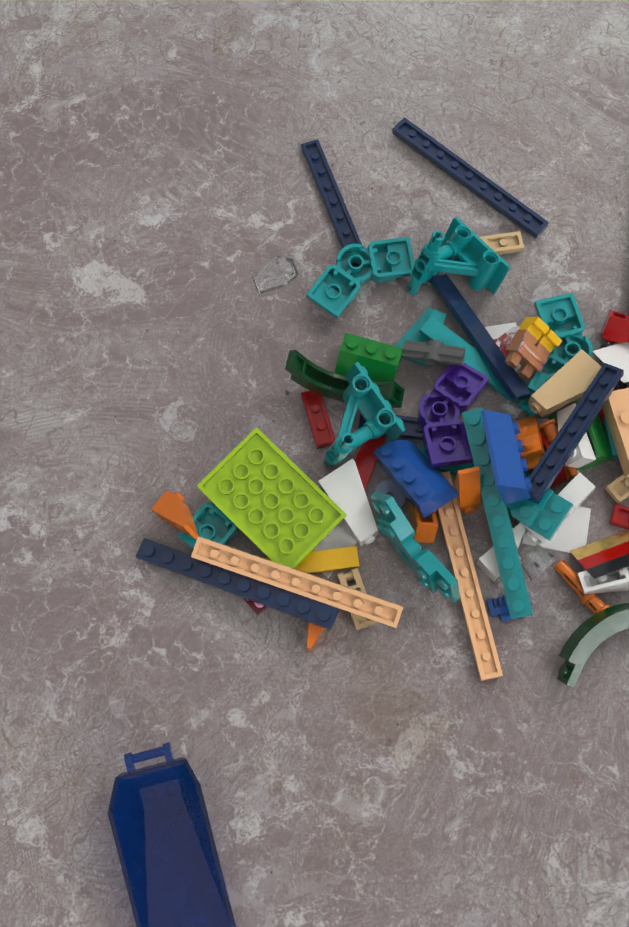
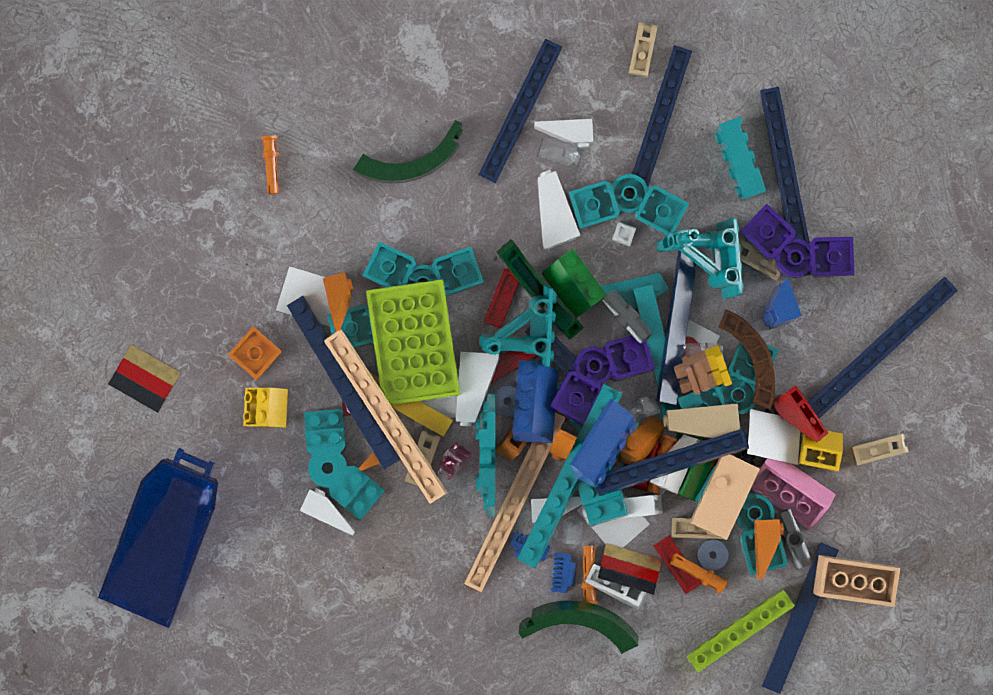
camera: 35 degrees right, 15 degrees up
(31, 444) = (271, 154): none -> orange pin
(48, 719) = (144, 378): none -> sticker
(136, 619) = (255, 353): none -> orange plate
(148, 526) = (305, 284): none -> white sticker
(161, 374) = (413, 170): none -> dark green arch
(181, 659) = (265, 407): none -> yellow slope
(202, 455) = (394, 268): none -> teal plate
(218, 271) = (520, 111): none -> dark blue tile
(276, 246) = (577, 131): none -> white slope
(280, 163) = (642, 50): none -> tan plate
(303, 711) = (323, 509): none -> white slope
(308, 671) = (346, 483): none -> teal plate
(309, 322) = (555, 214): none -> white slope
(375, 300) = (624, 234): none -> white tile
(385, 577) = (454, 460): none -> clear pink brick
(418, 182) = (740, 159): none -> teal wedge
(542, 206) = (776, 241): none -> dark purple plate
(549, 250) = (781, 307): none -> blue slope
(560, 601) = (568, 573): none -> blue piece
(562, 306) = (758, 354): none -> reddish brown tile

